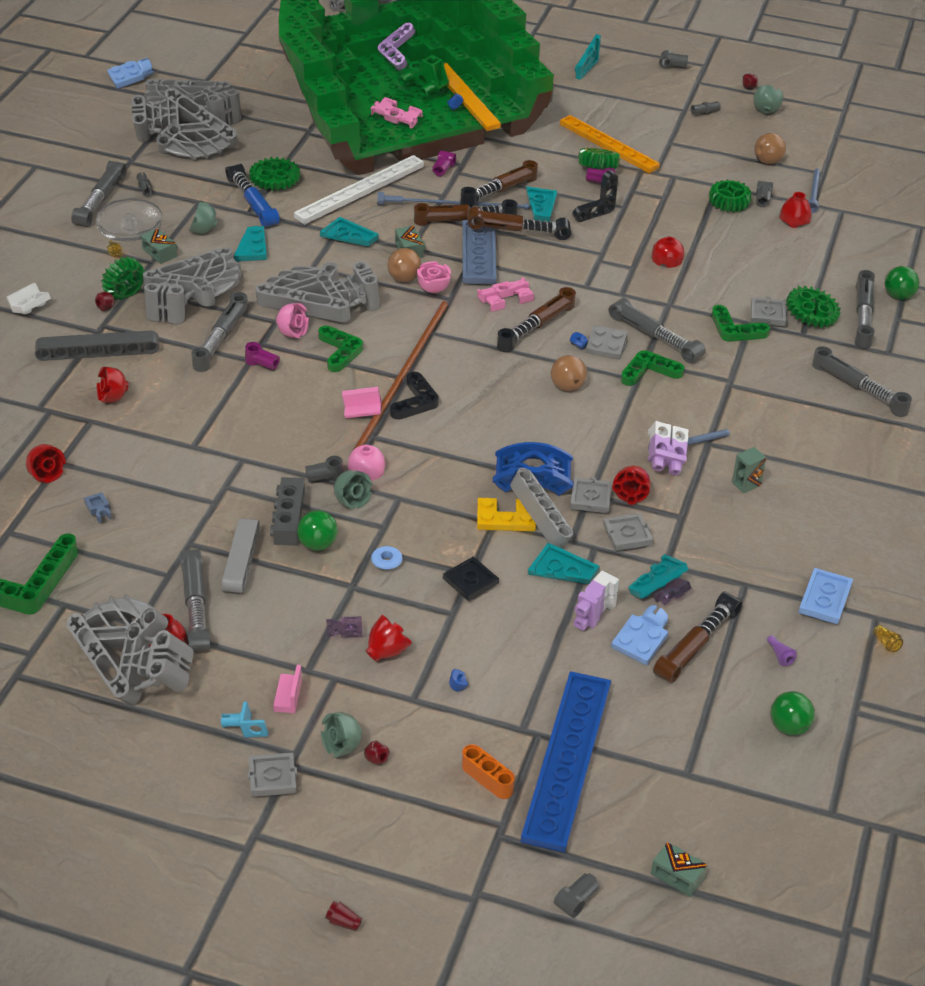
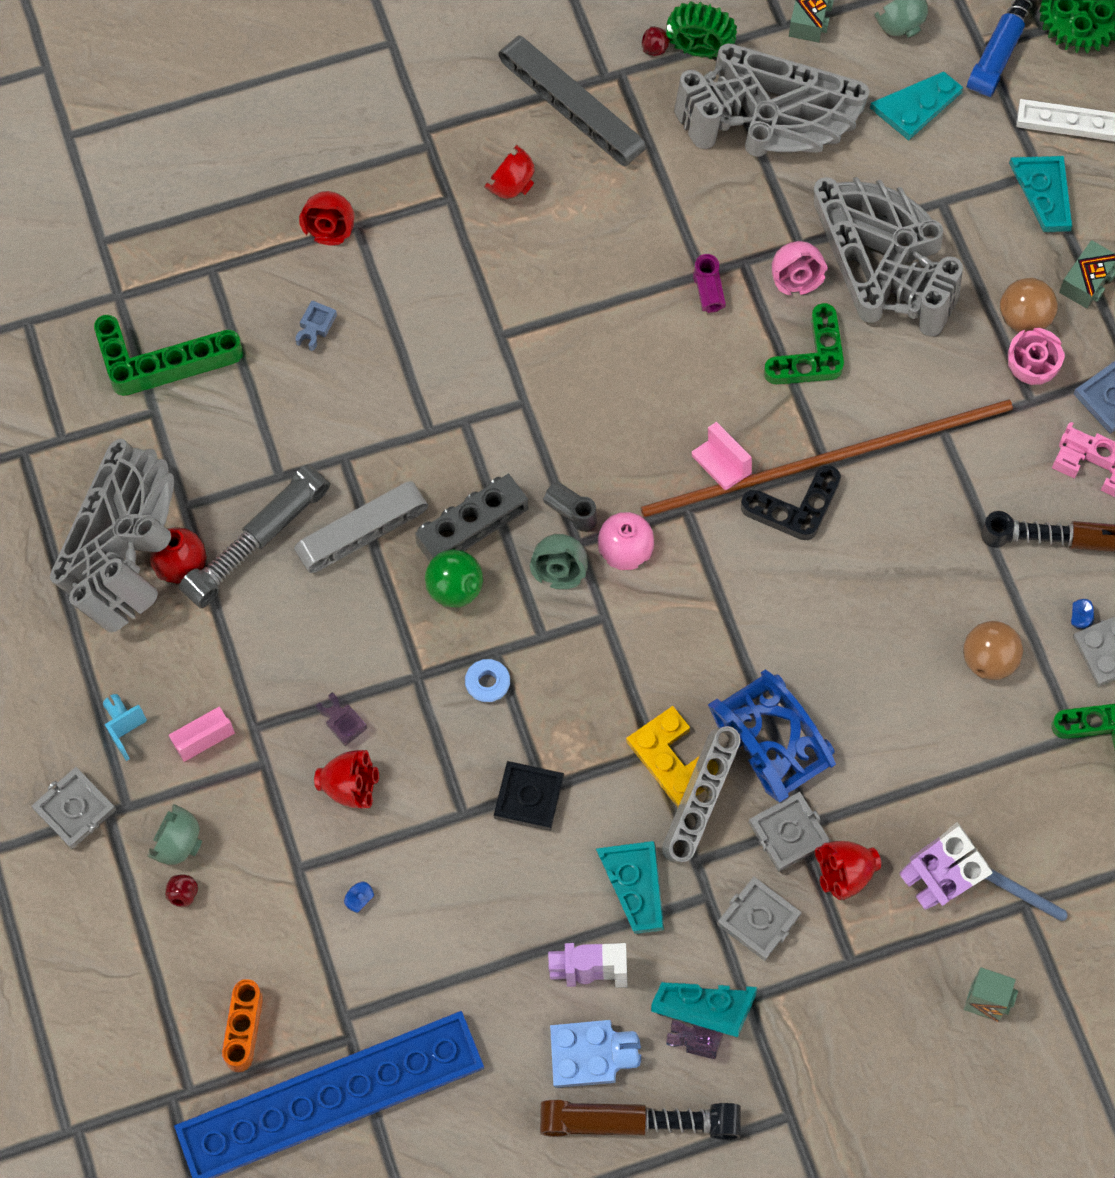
camera: 55 degrees right, 25 degrees up
(236, 308) = (717, 202): dark grey piece -> none

